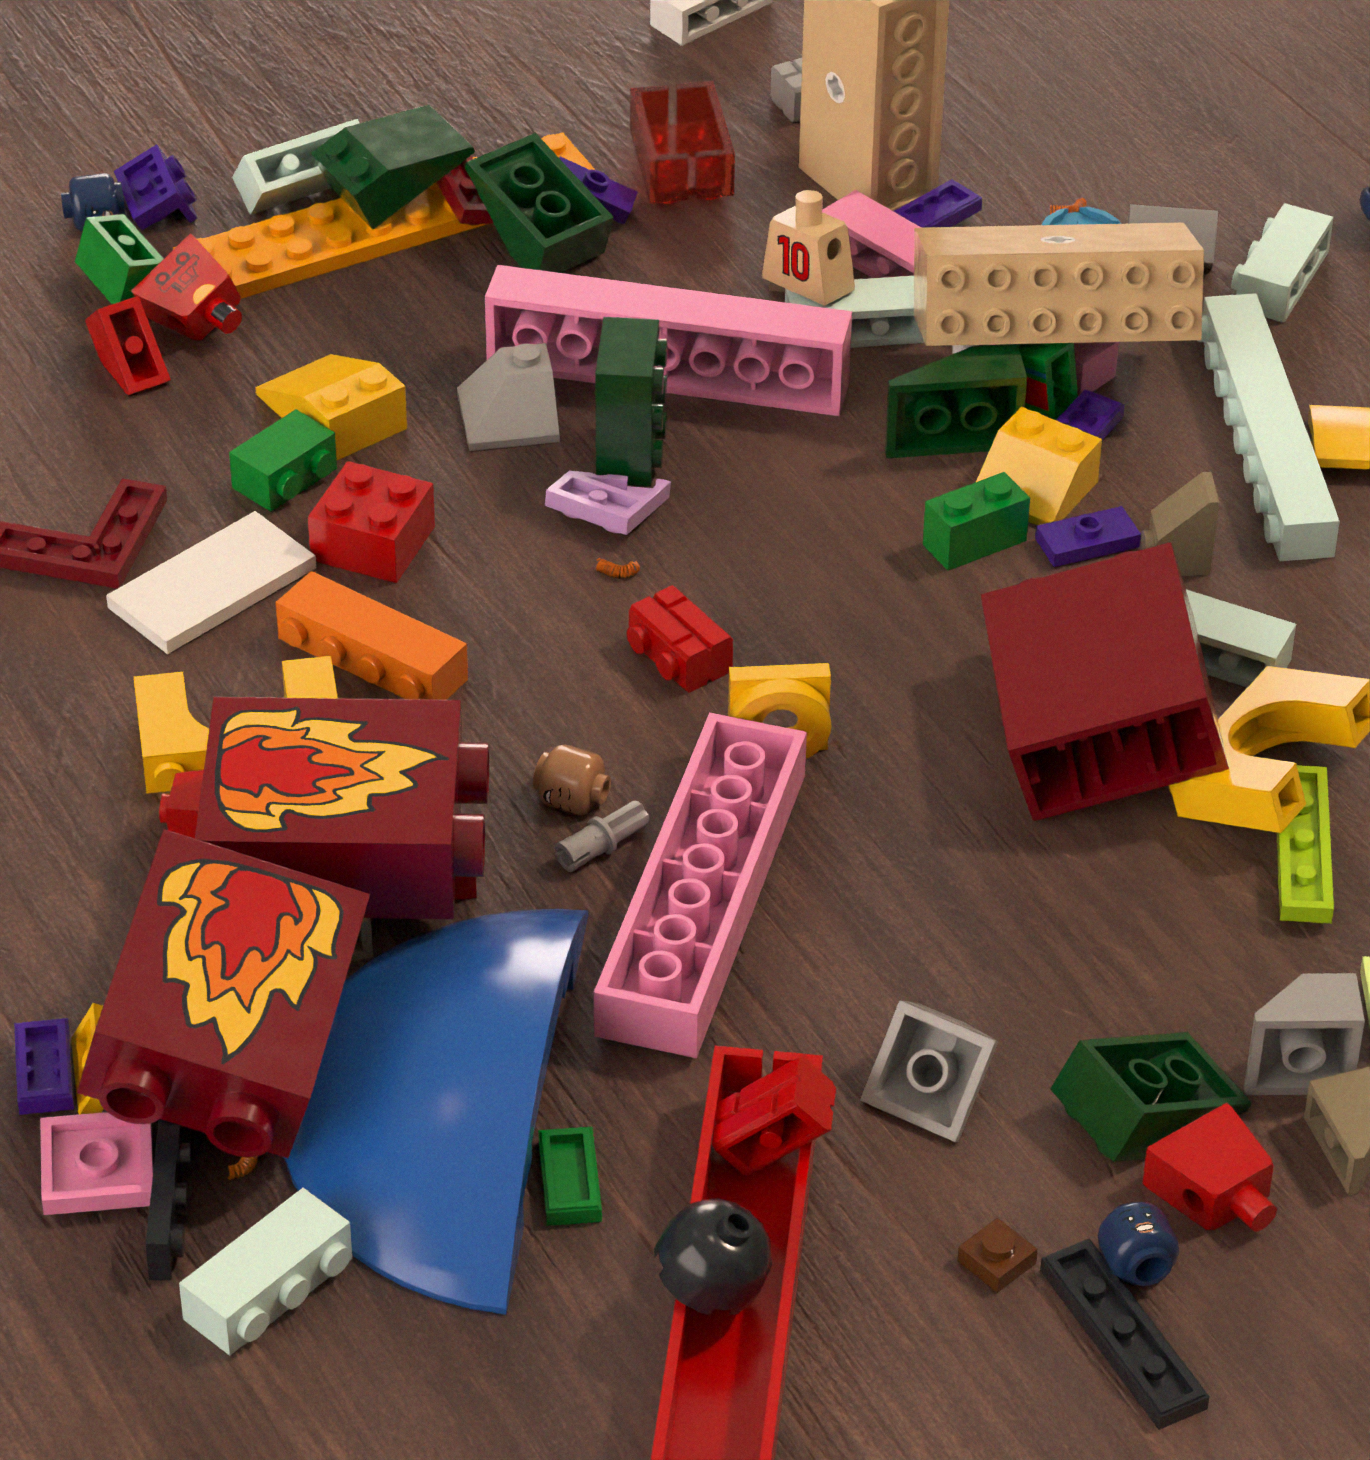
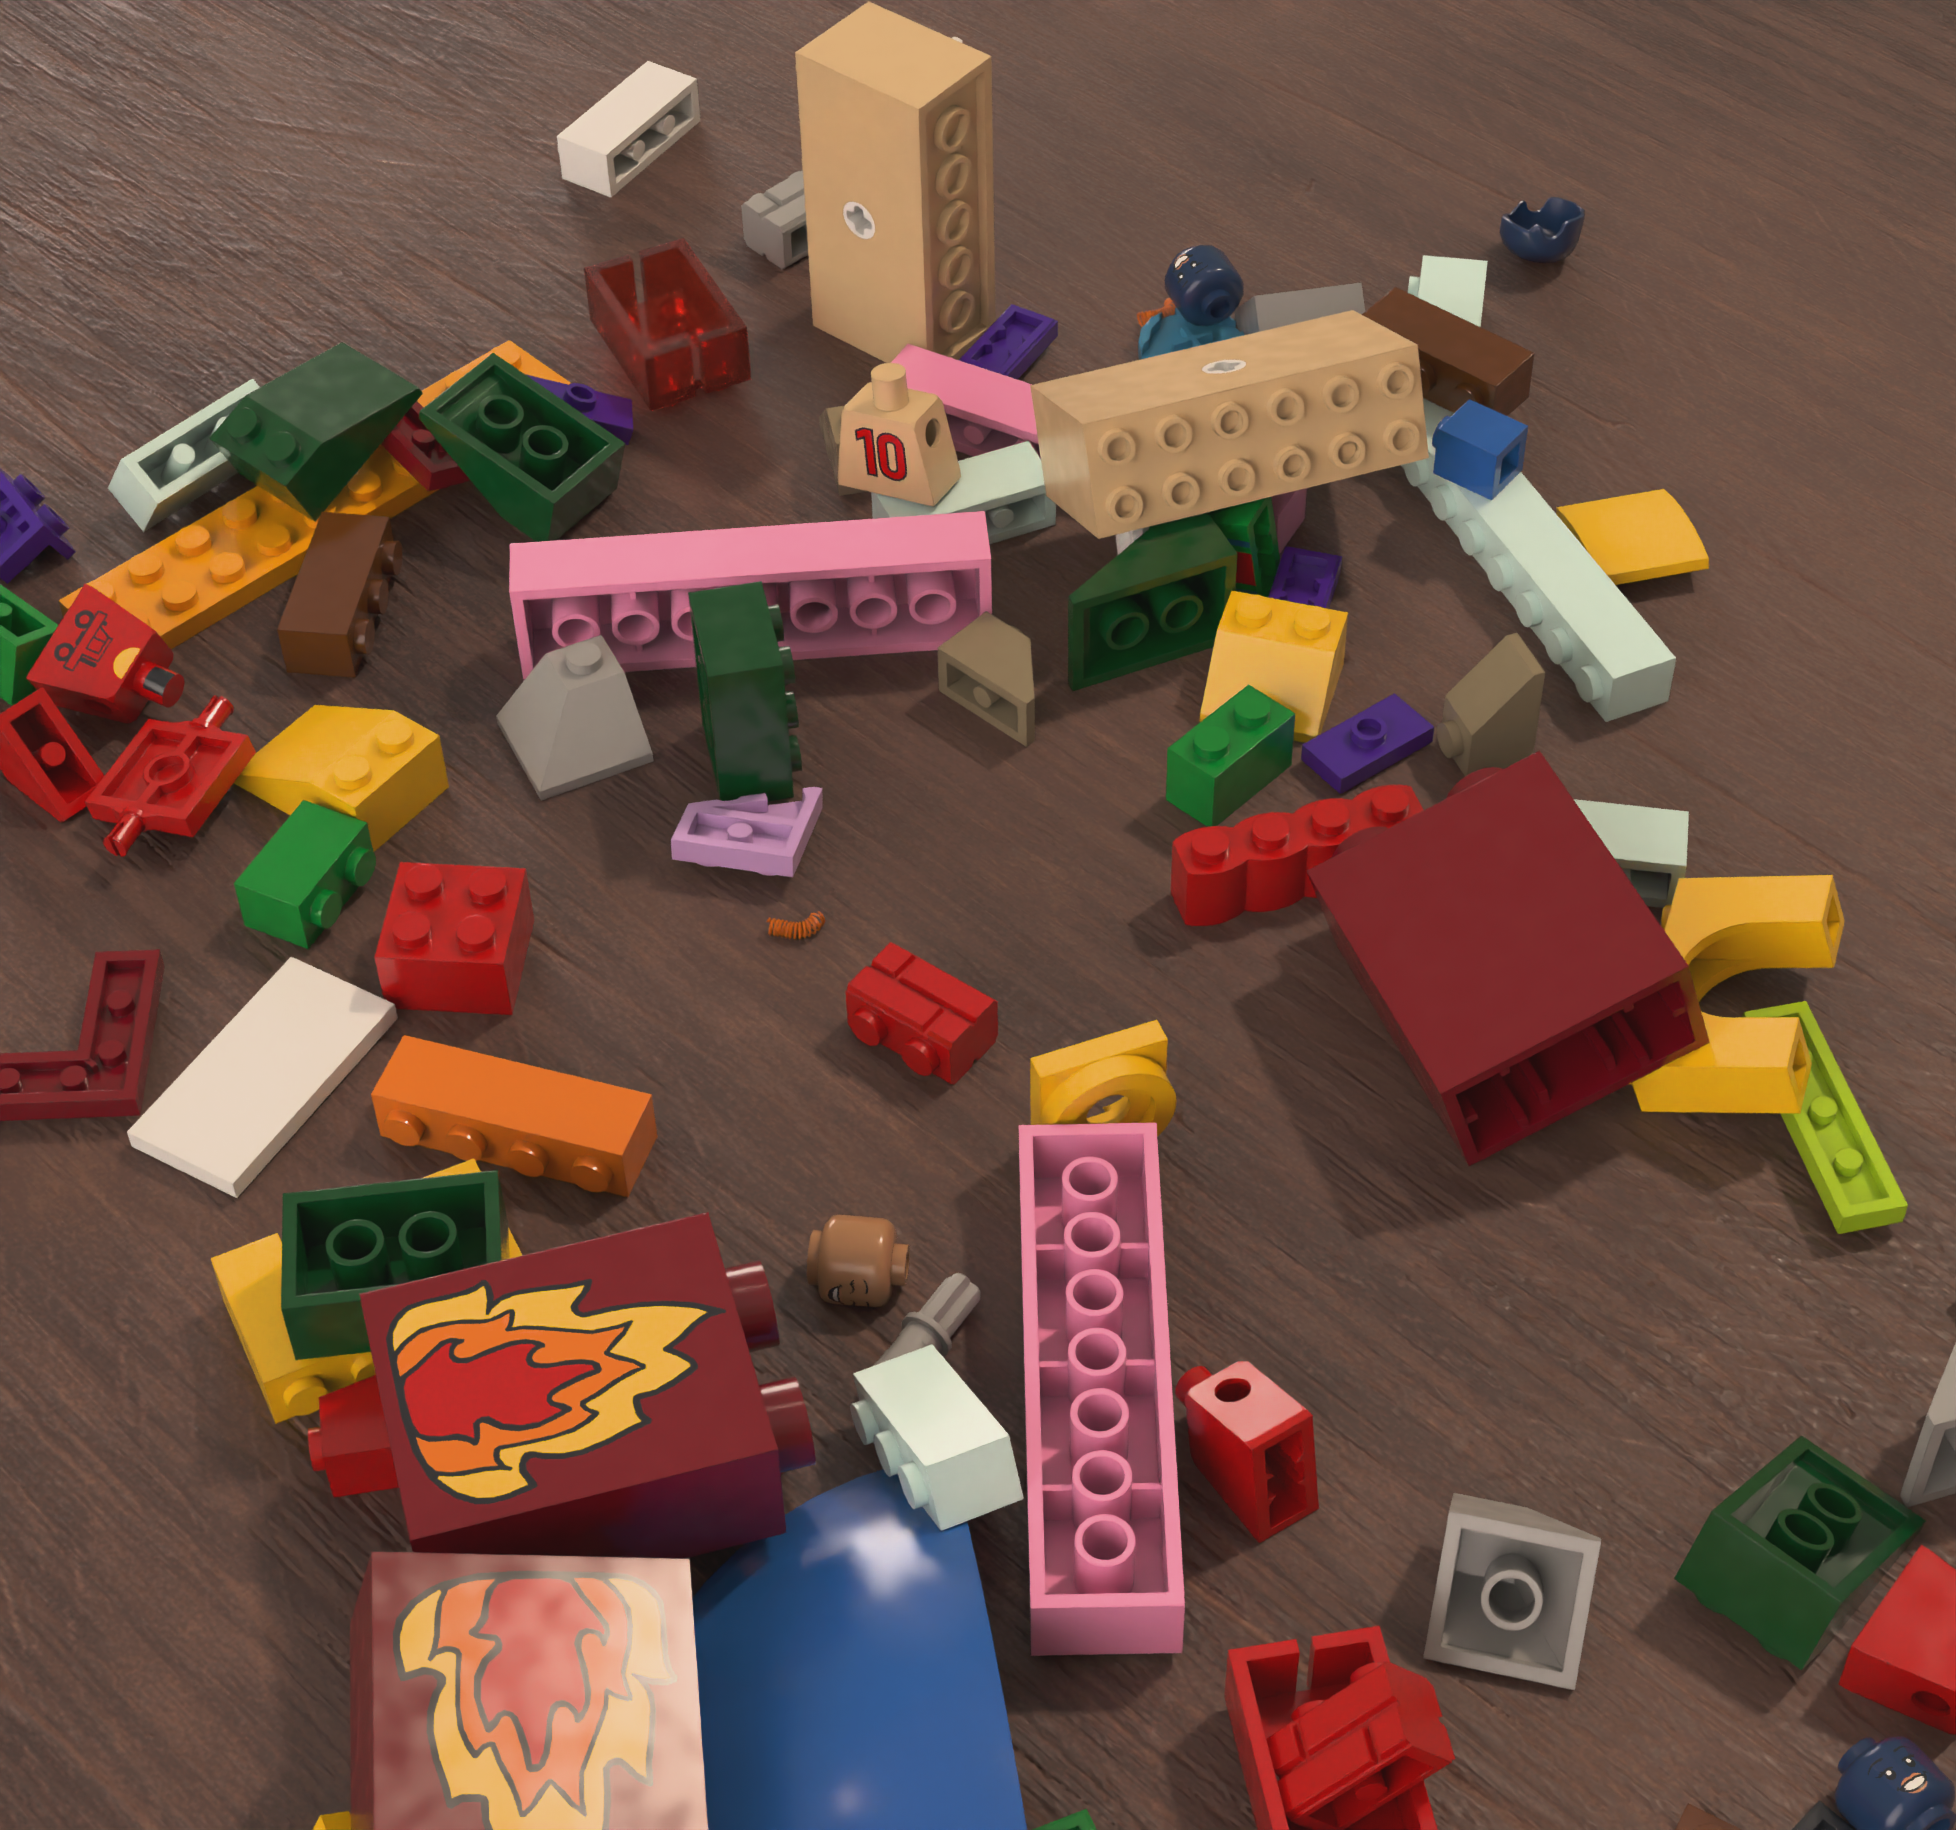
camera: 15 degrees left, 5 degrees up
(211, 378) = (170, 777): none -> red plate
(238, 669) = (375, 1239): none -> dark green brick
(372, 282) = (339, 594): none -> reddish brown brick
(573, 885) = (935, 1437): none -> light aqua brick
(787, 927) = (1251, 1445): none -> red torso
(825, 431) = (991, 675): none -> dark tan slope
(948, 594) = (1267, 856): none -> red brick
(1101, 192) = (1204, 285): none -> dark blue head
(1253, 346) = (1479, 449): none -> blue brick
(1258, 277) = (1456, 355): none -> reddish brown brick

